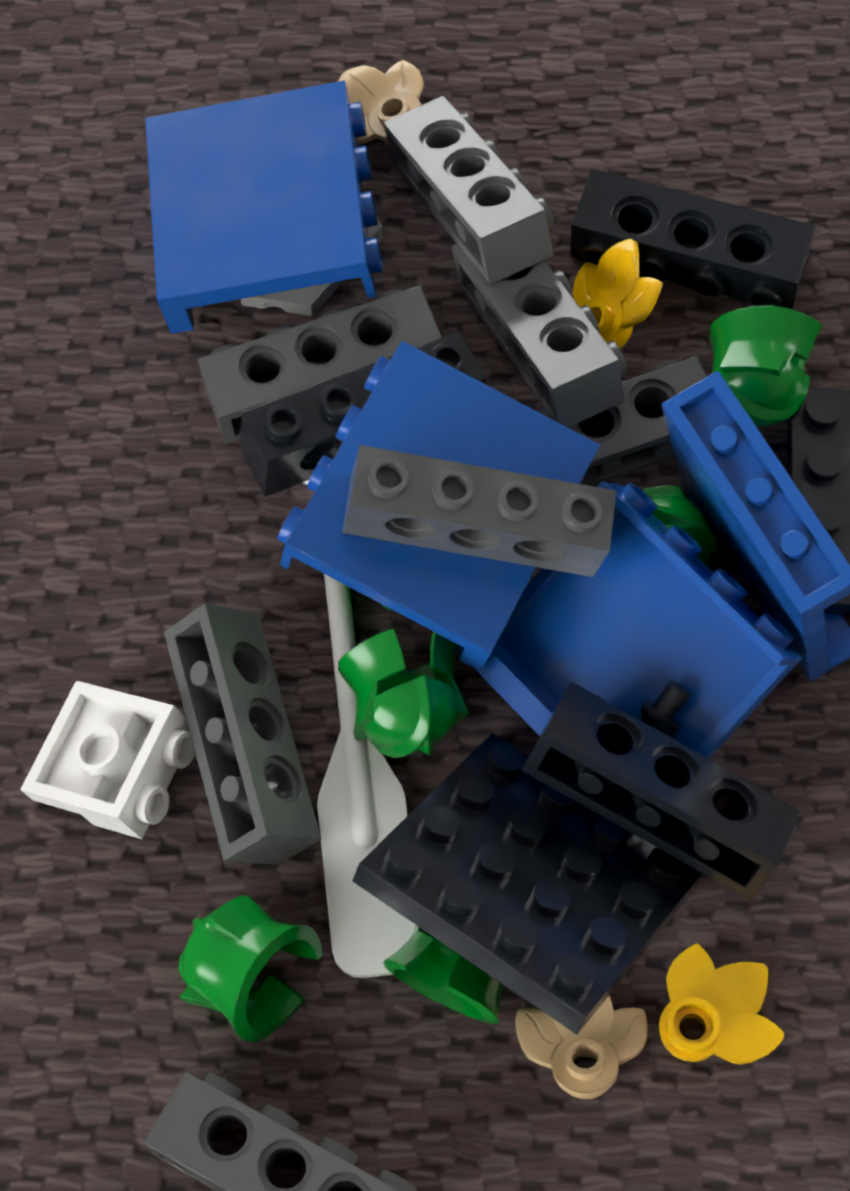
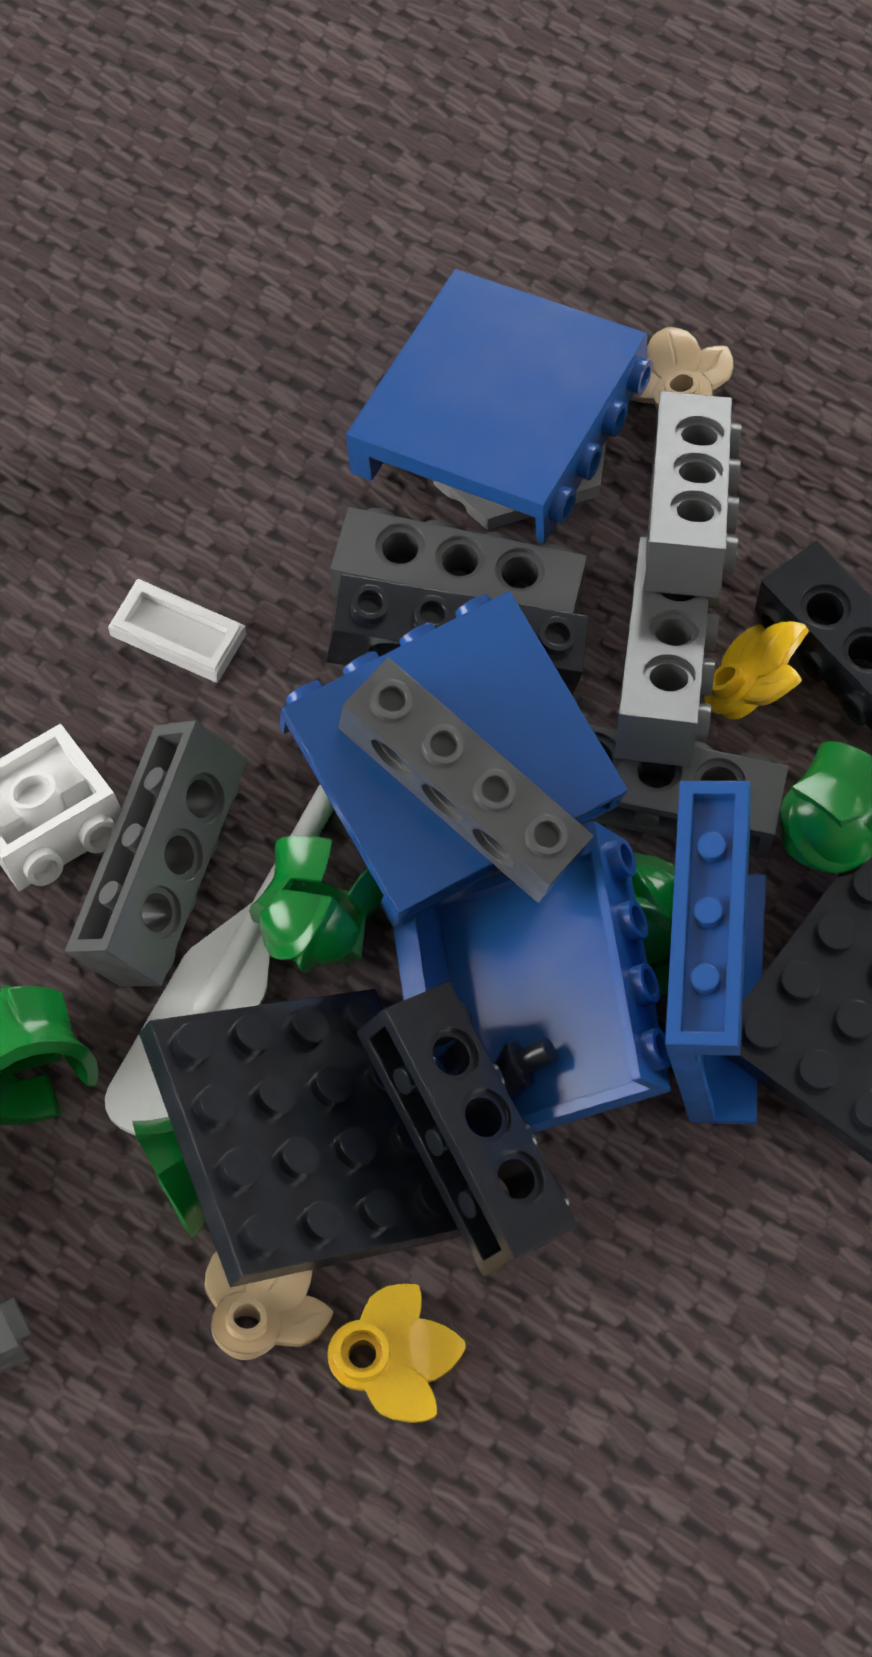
camera: 30 degrees right, 0 degrees up
(116, 547) = (177, 630): none -> white tile

